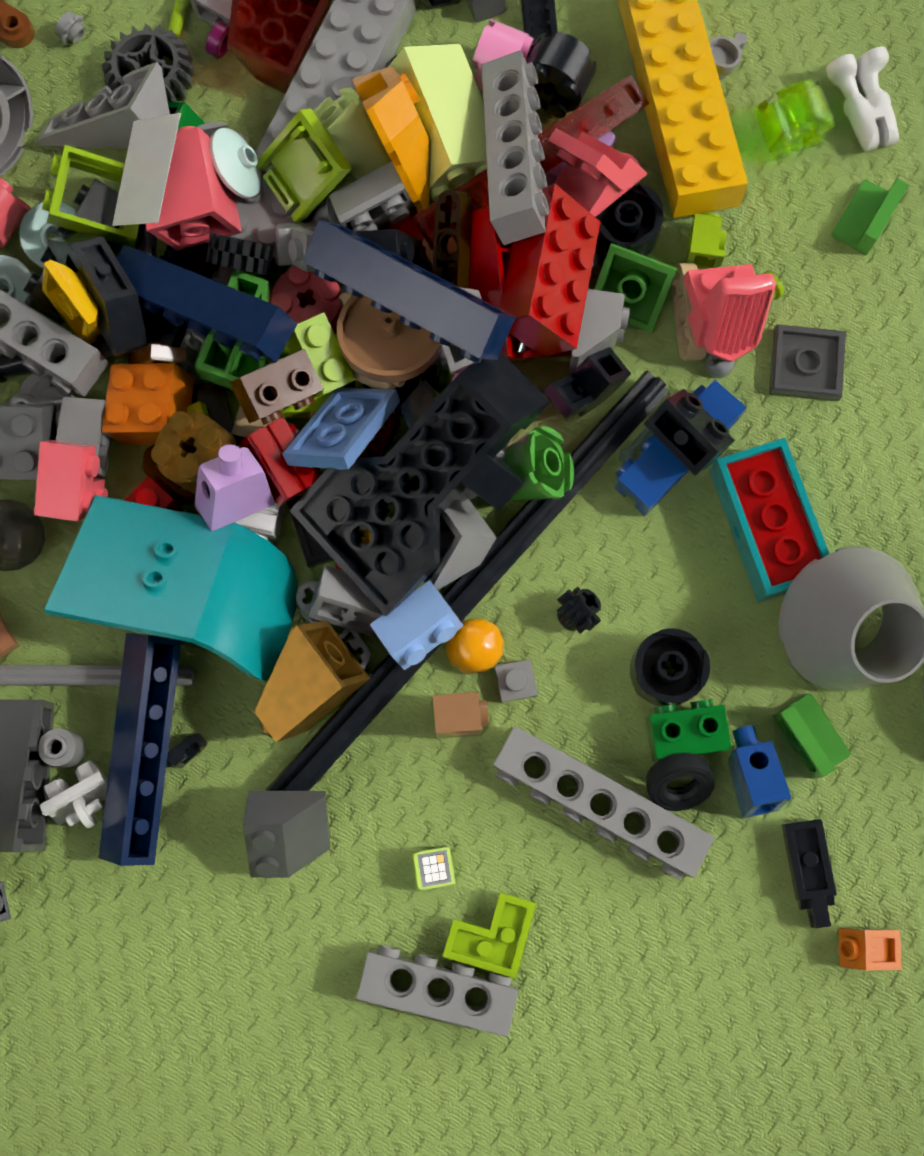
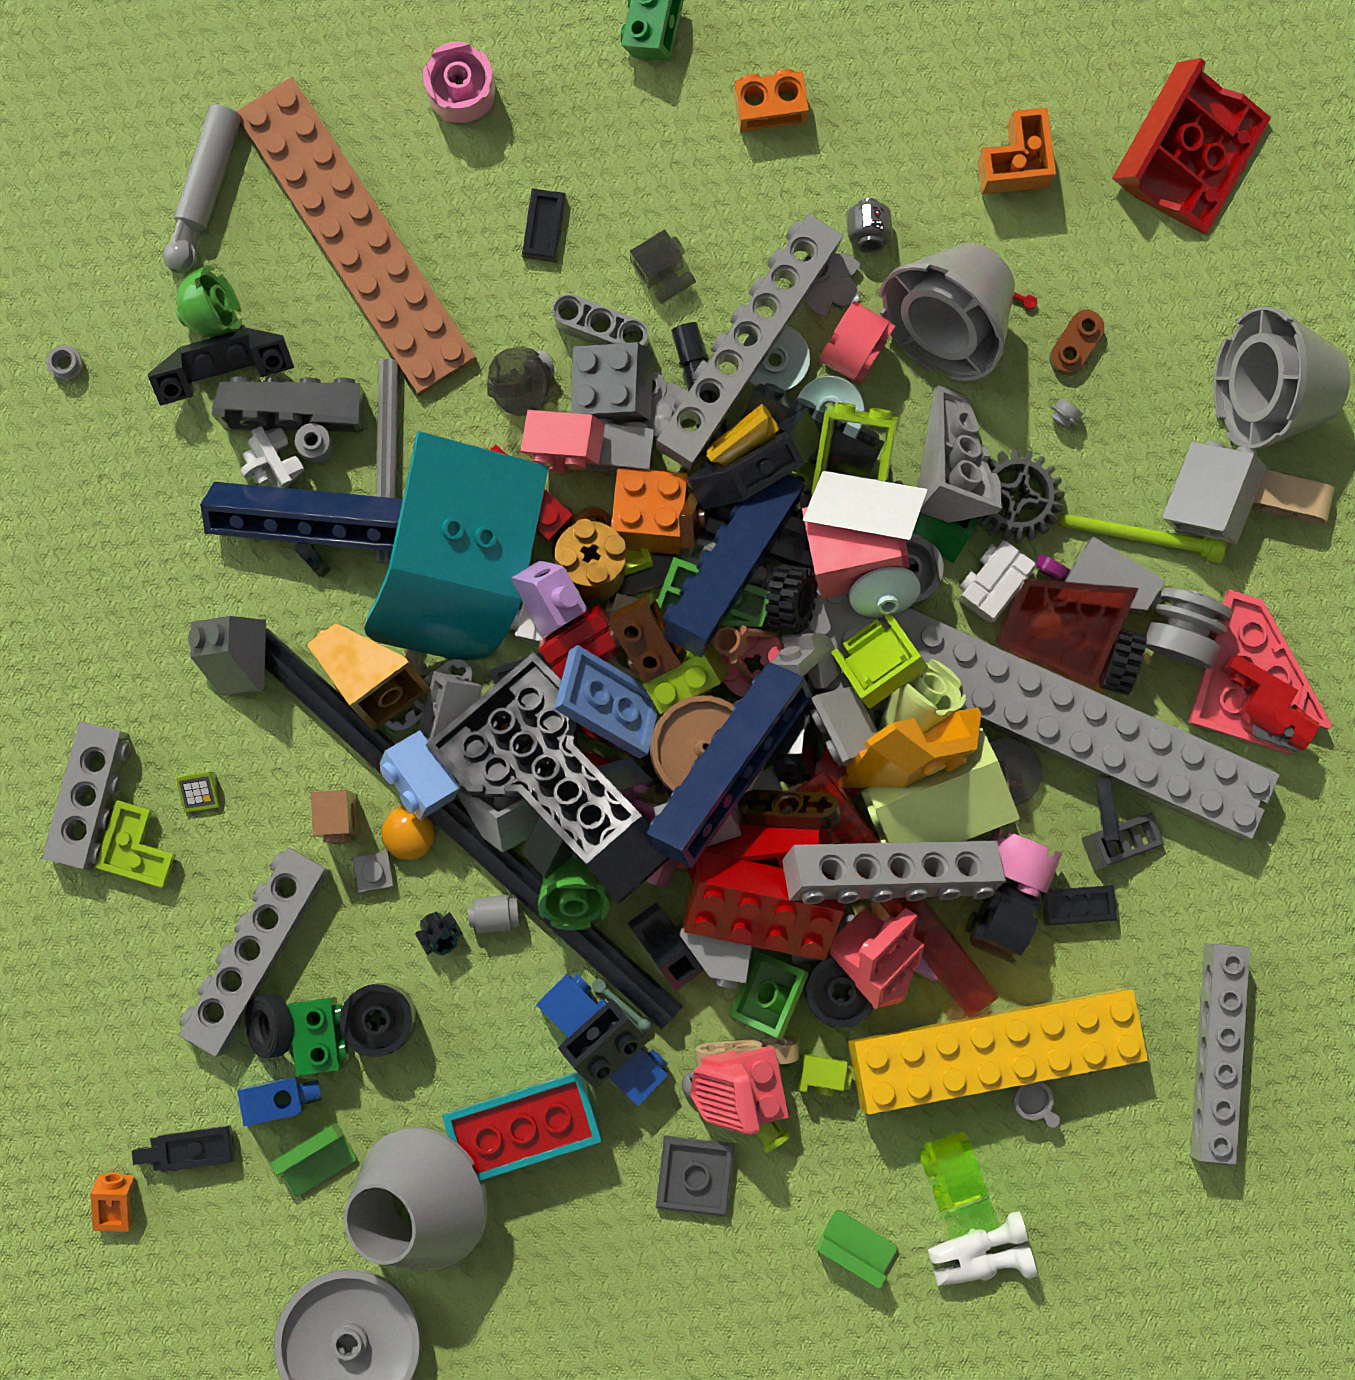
camera: 85 degrees right, 5 degrees up
(230, 87) = (996, 581): none -> white brick
(288, 299) = (733, 644): none -> nougat plant
(558, 555) = (494, 914): none -> light grey brick

